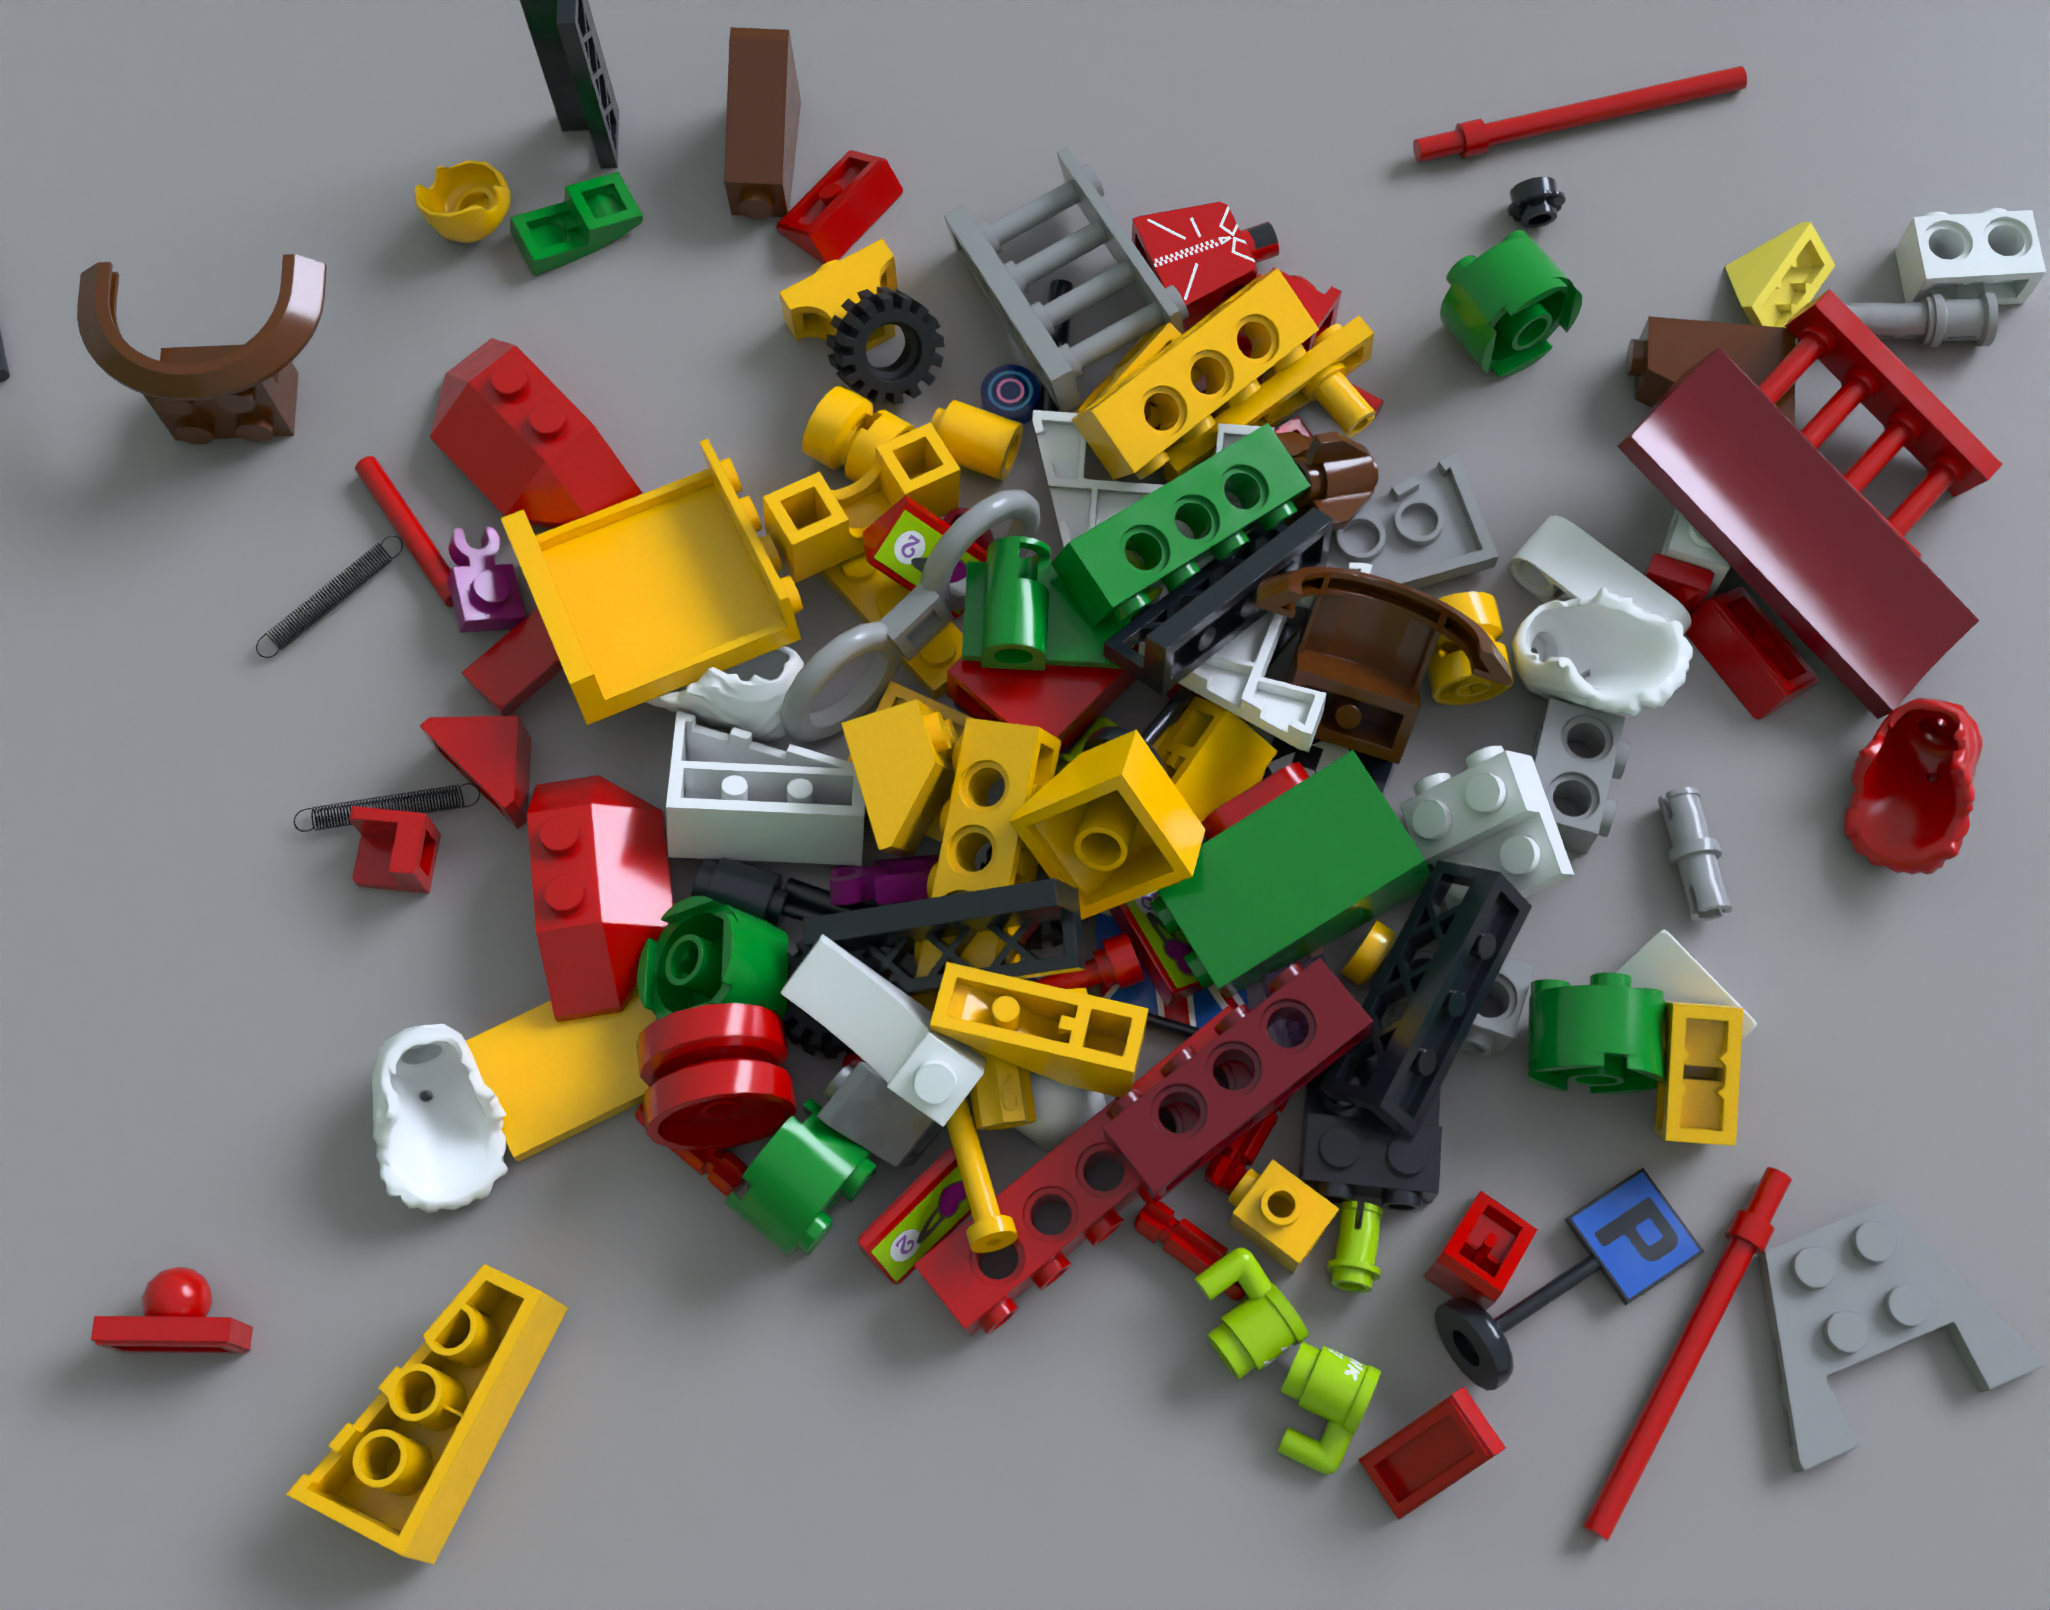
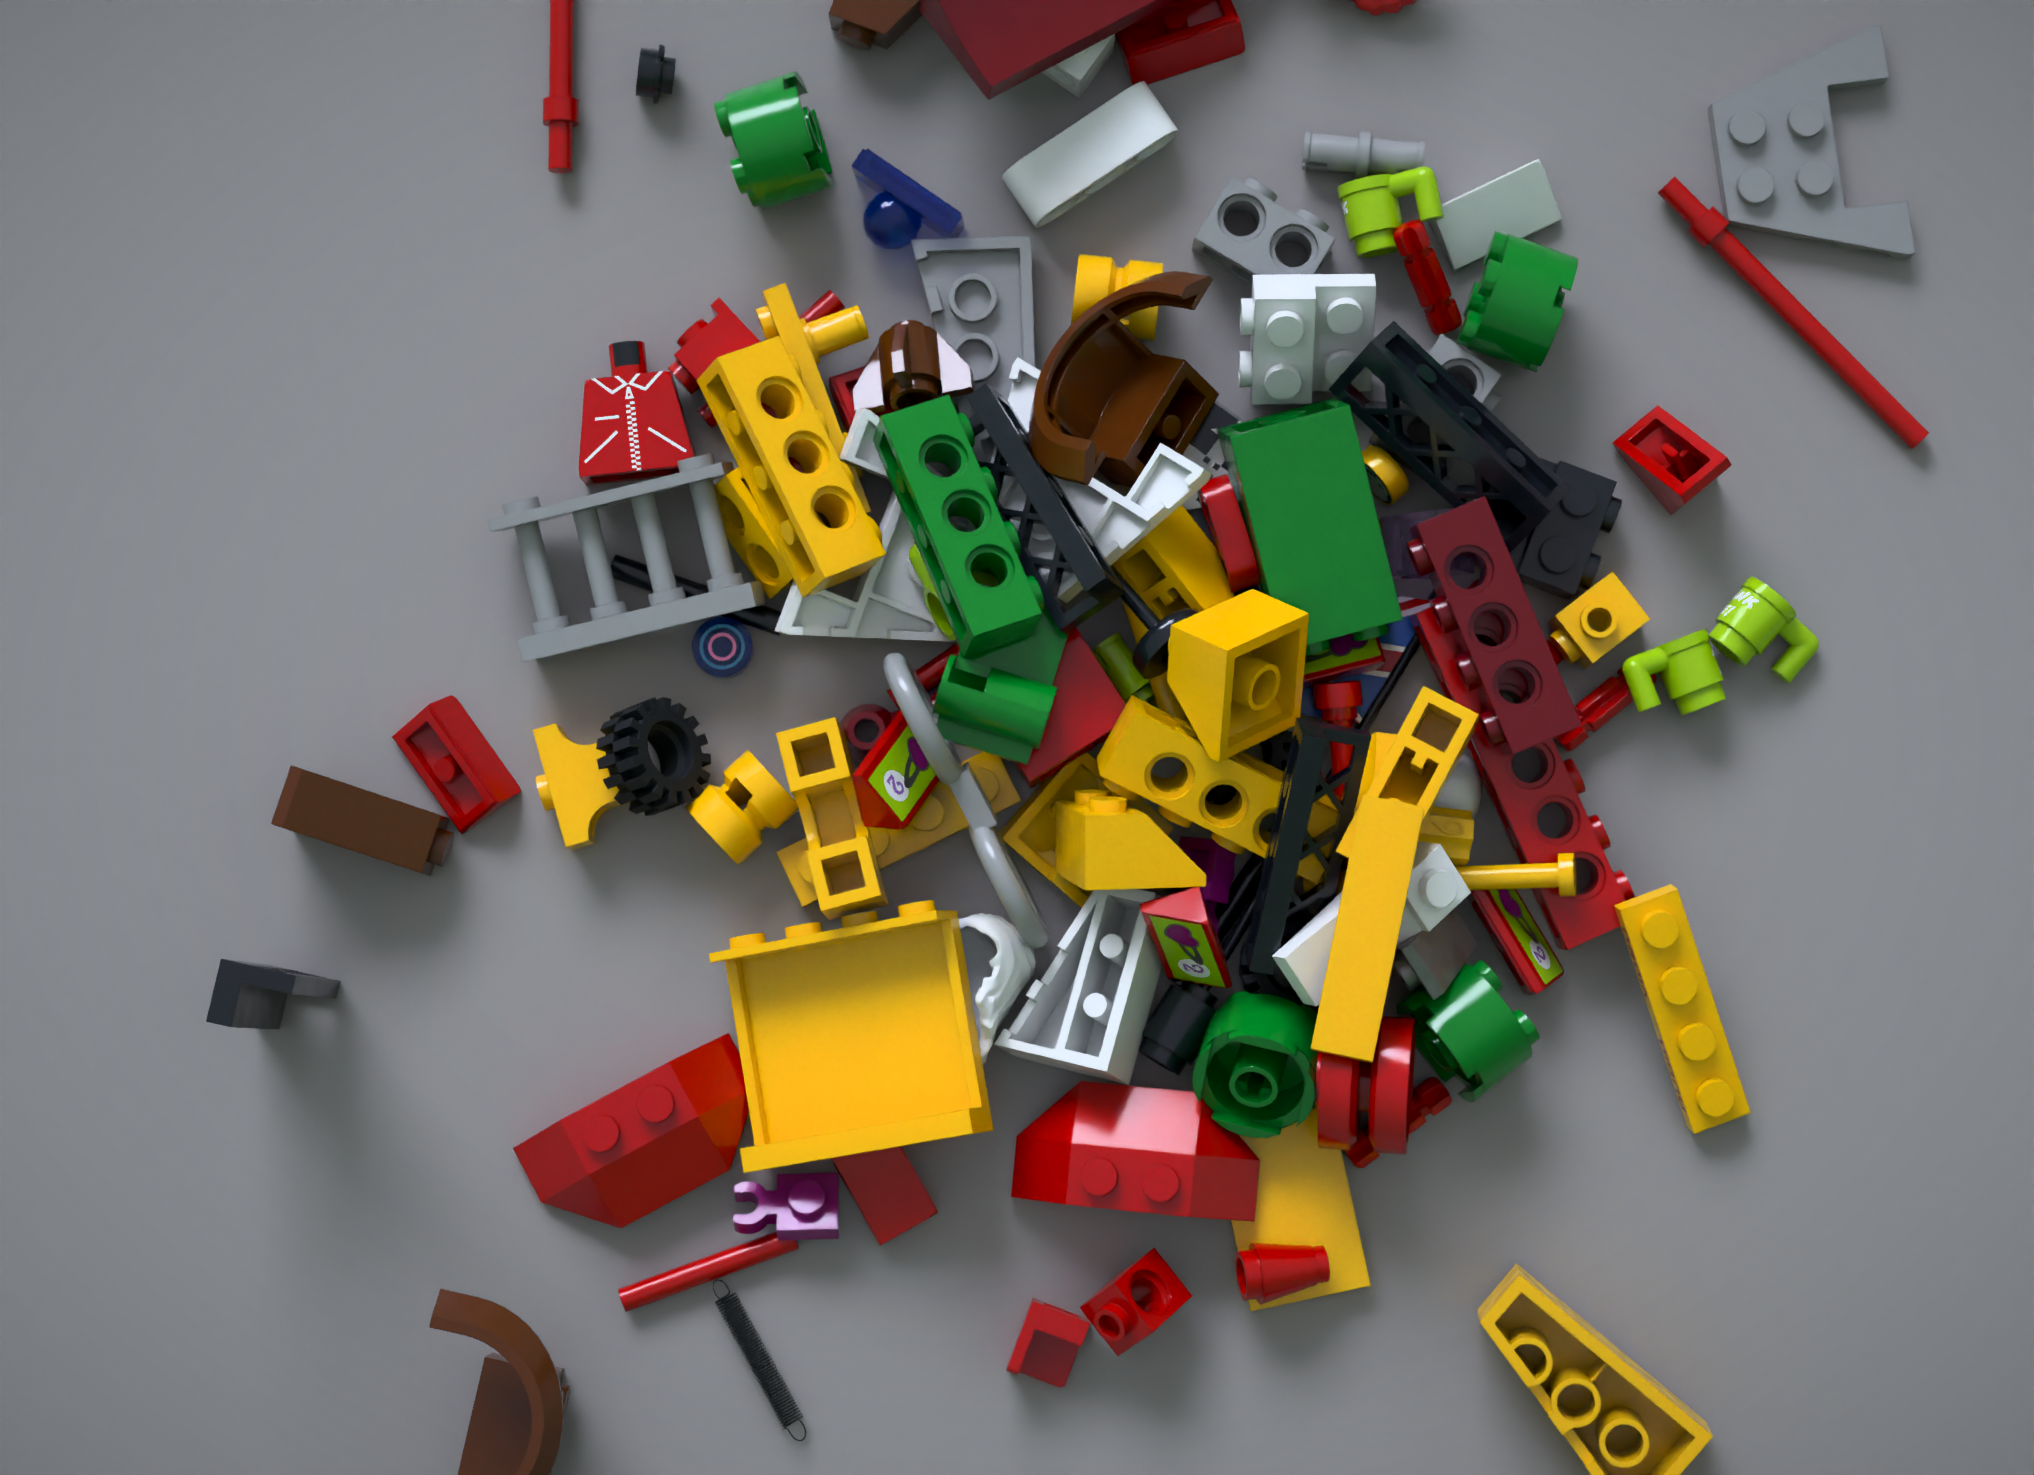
camera: 75 degrees left, 15 degrees up
(440, 793) = (994, 1287): black piece -> none
(442, 1148) = (1342, 1342): white piece -> none
(465, 201) = (353, 1143): yellow hair -> none
(465, 931) = (1135, 1302): none -> red brick
(489, 754) = (981, 1233): red slope -> none
(506, 1051) = (1279, 1270): none -> red cone
(586, 221) = (403, 1035): green slope -> none
(827, 860) = (1186, 938): none -> slope
(872, 1006) = (1367, 928): none -> yellow slope
(881, 1412) = (1682, 1008): none -> yellow plate
(979, 438) = (768, 694): yellow brick -> none
(1356, 1249) = (1642, 567): lime pin -> none
(1431, 1453) = (1831, 556): red tile -> none
(1486, 435) = (901, 205): none -> clear blue tile
(1594, 939) = (1427, 277): none -> red axle
(1601, 654) = (1169, 177): white piece -> none
(1628, 1237) = (1685, 330): black piece -> none
(1643, 876) = (1374, 208): none -> lime piece
(1680, 579) = (1102, 82): red tile -> none
(1701, 1074) = (1574, 223): yellow brick -> none

